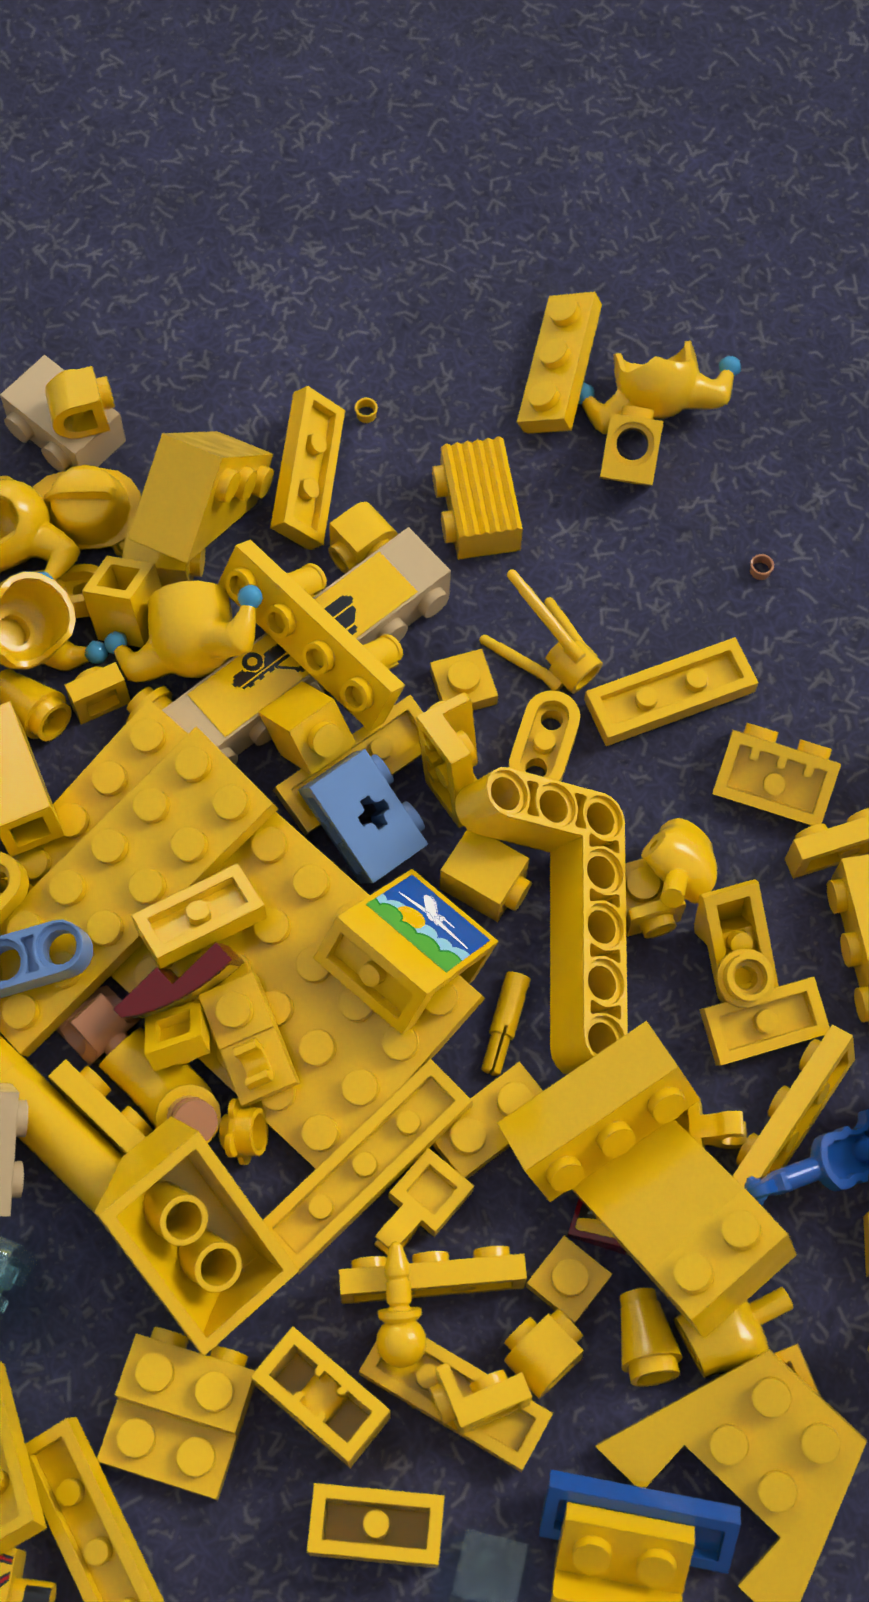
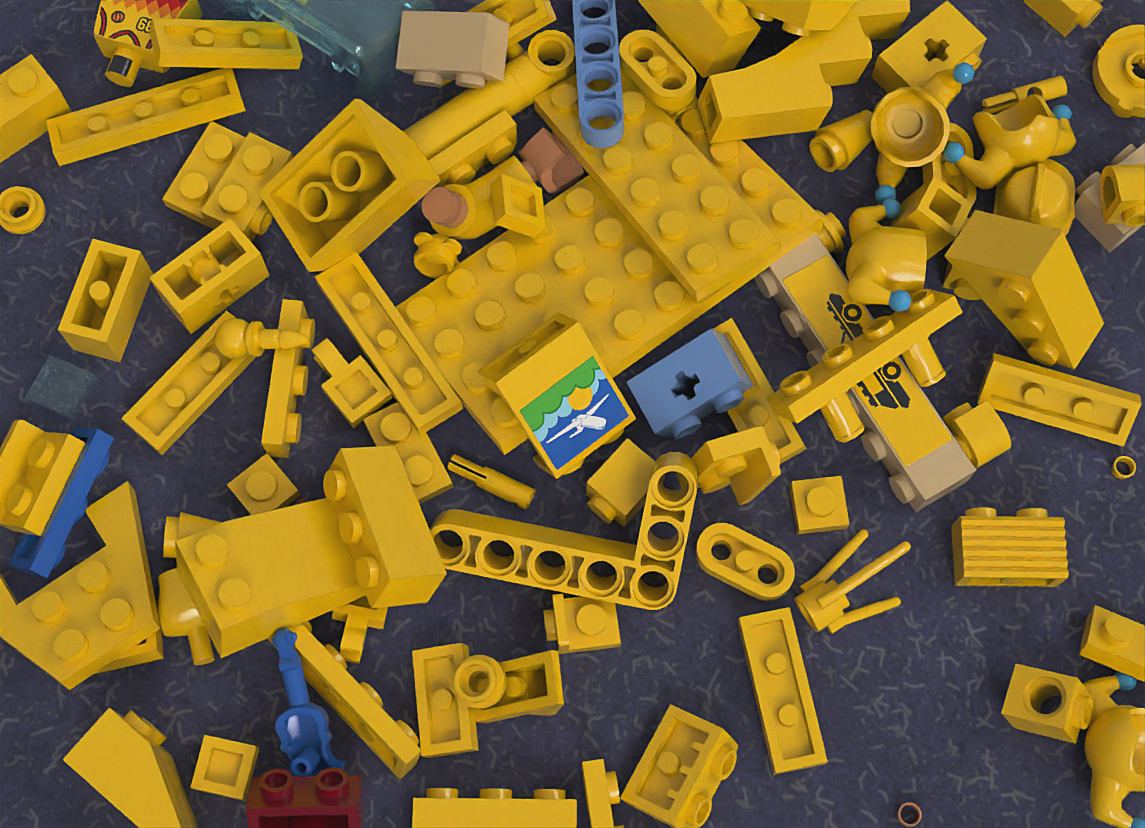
camera: 100 degrees right, 5 degrees up
(97, 692) = (846, 189): yellow plate -> none
(165, 991) = (558, 208): dark red slope -> none
(199, 916) = (609, 226): yellow plate -> none
(249, 1039) = (505, 261): yellow plate -> none
(307, 727) = (780, 347): yellow brick -> none
(490, 1400) = (171, 385): yellow bracket -> none
(544, 1351) = (208, 455): yellow plate -> none
(683, 861) = (602, 655): yellow piece -> none

